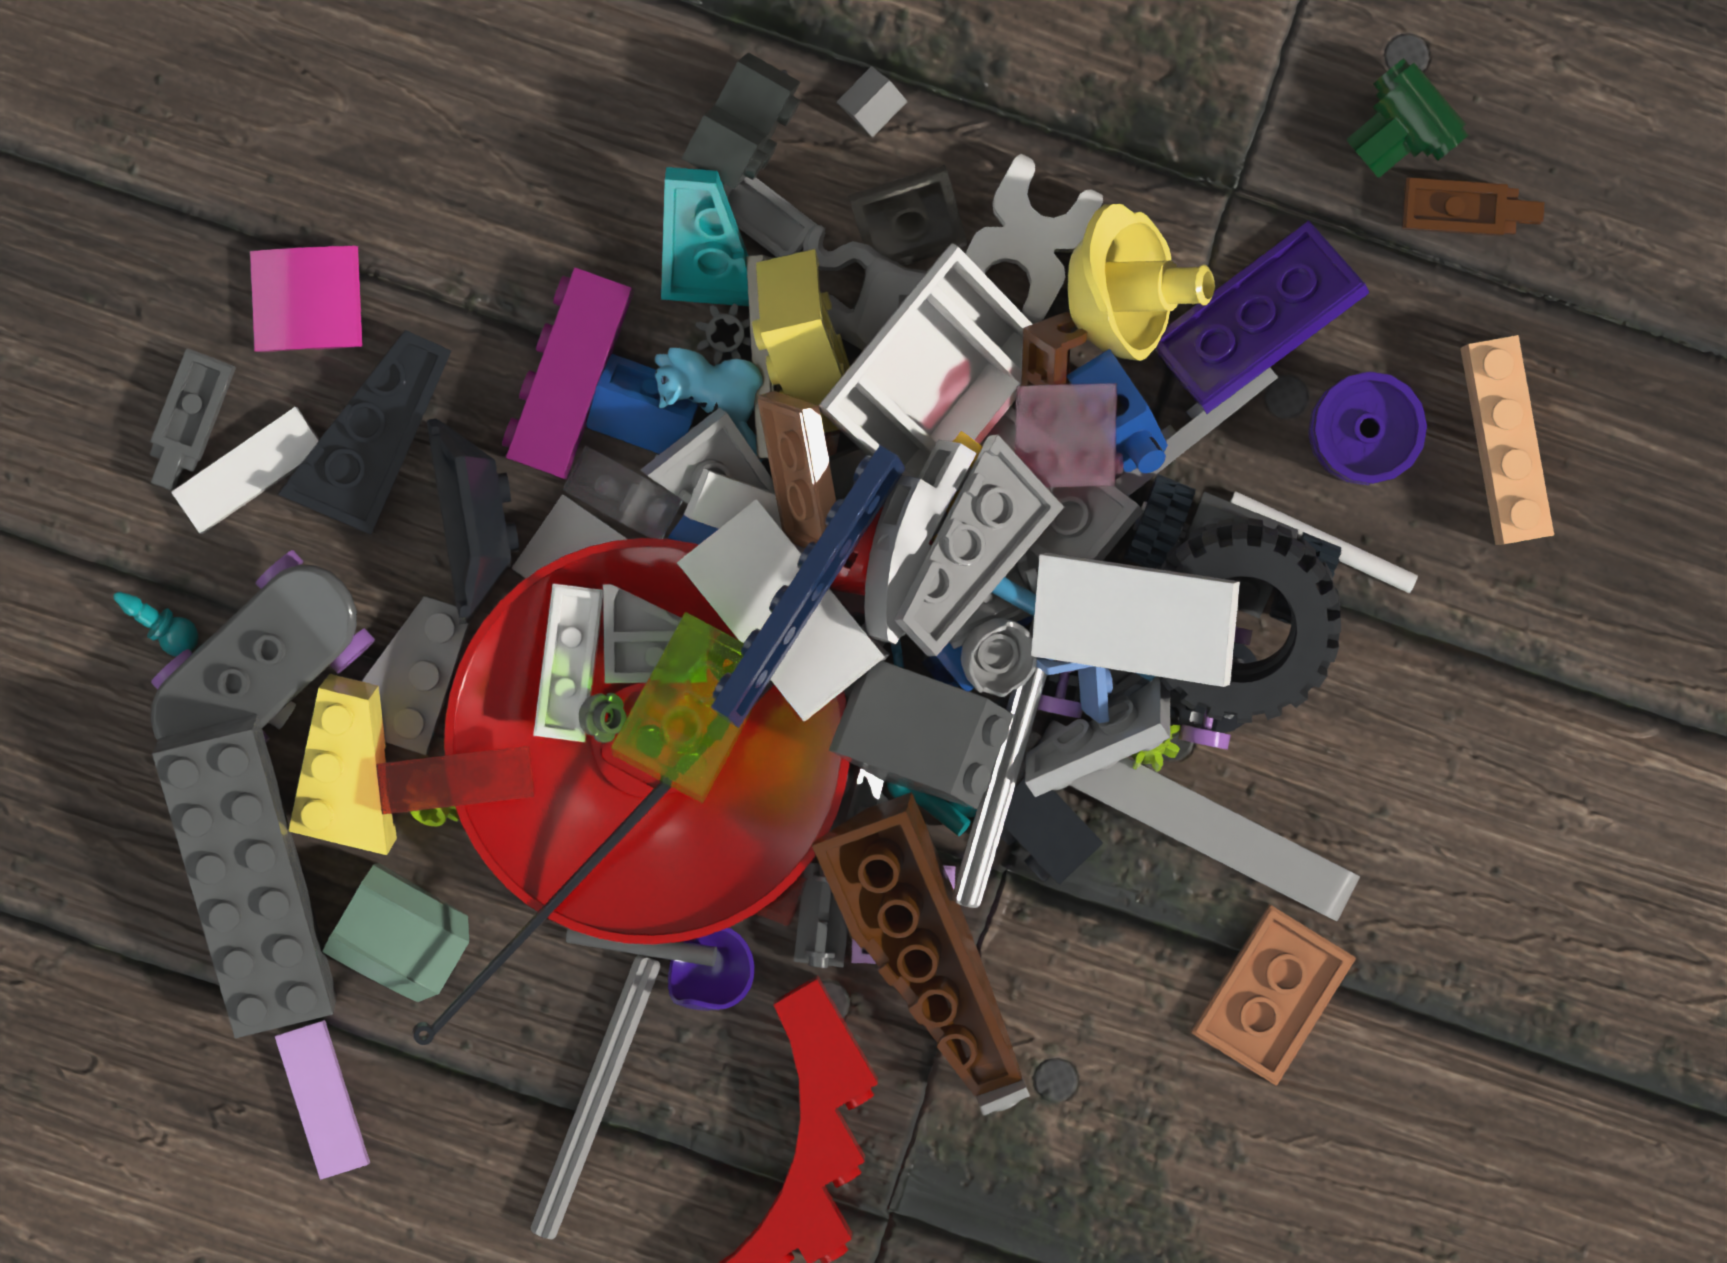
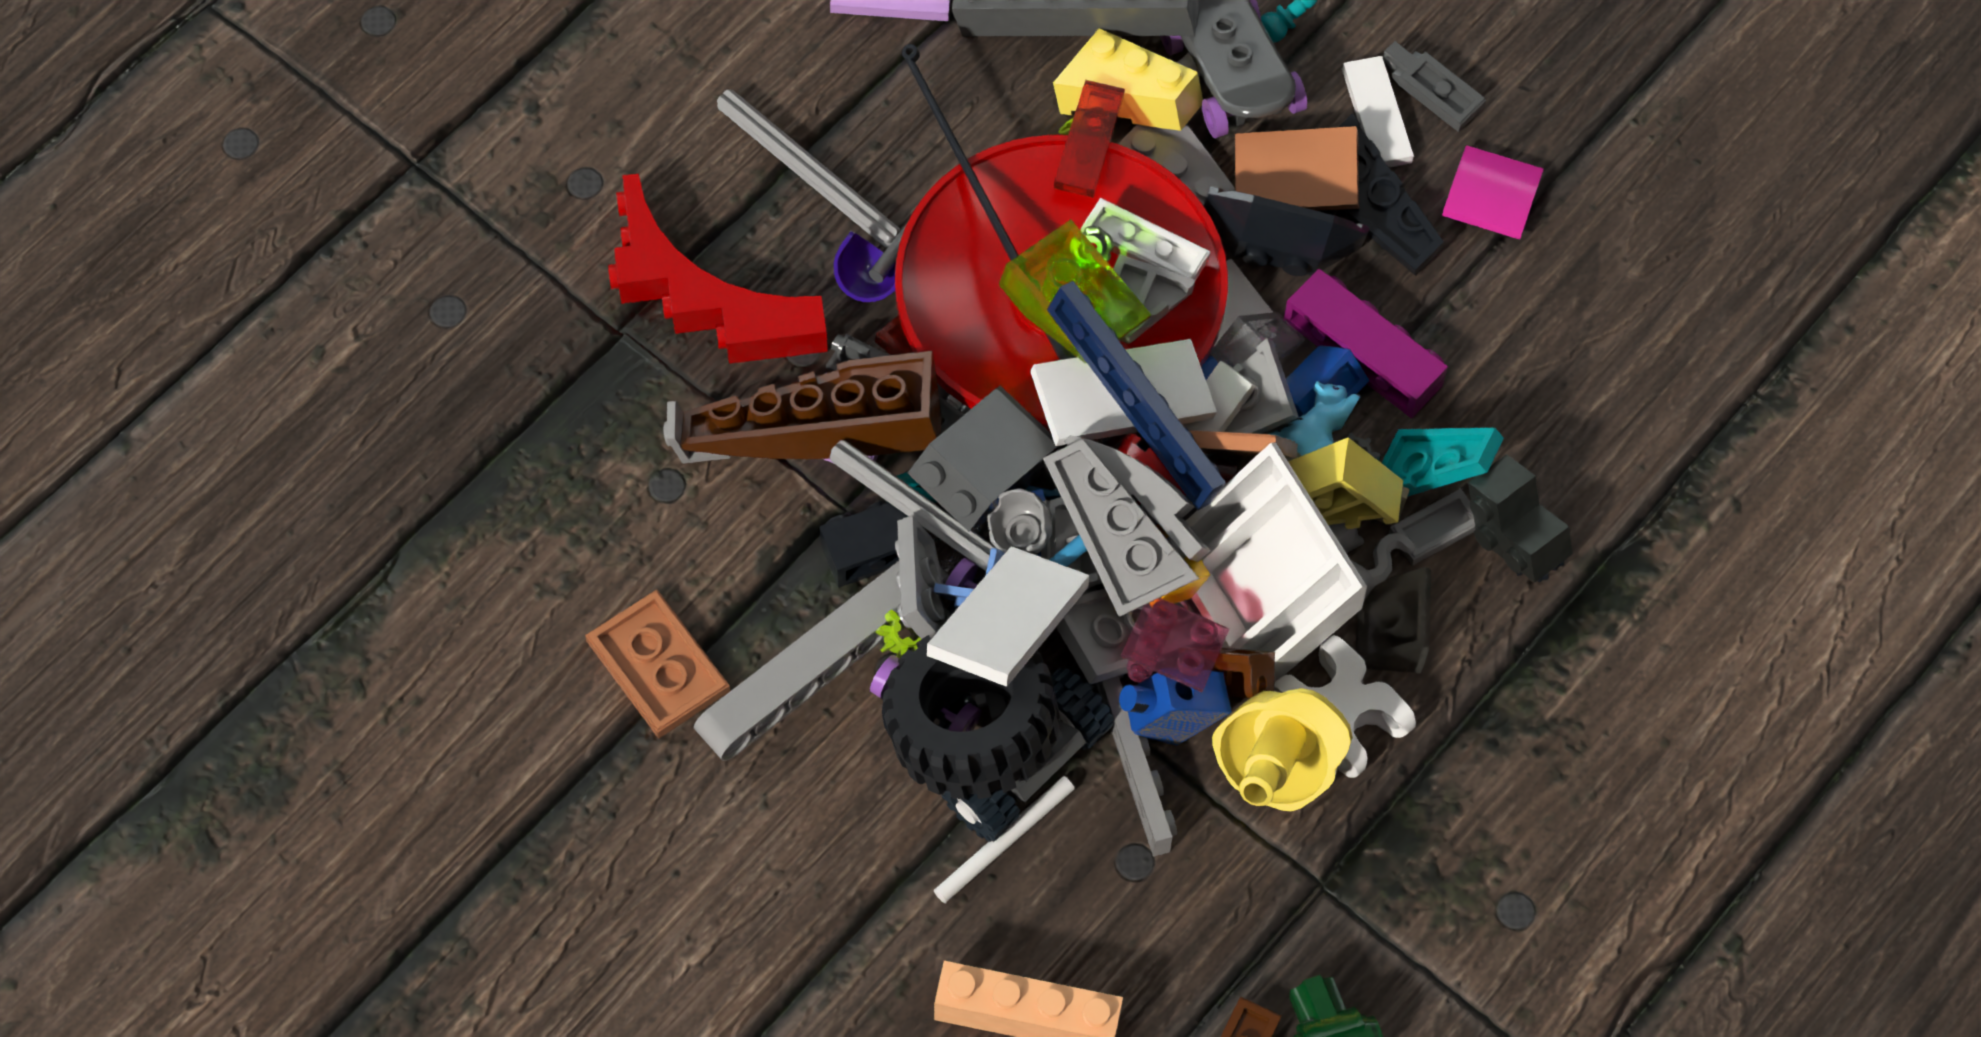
camera: 115 degrees right, 25 degrees down
(379, 530) = (1300, 167): none -> nougat tile
(399, 935) = (992, 82): sand green slope -> none
(872, 101) = (1497, 637): light grey slope -> none
(1259, 316) = (1211, 852): dark purple tile -> none
(1384, 403) = (1087, 872): dark purple wheel -> none

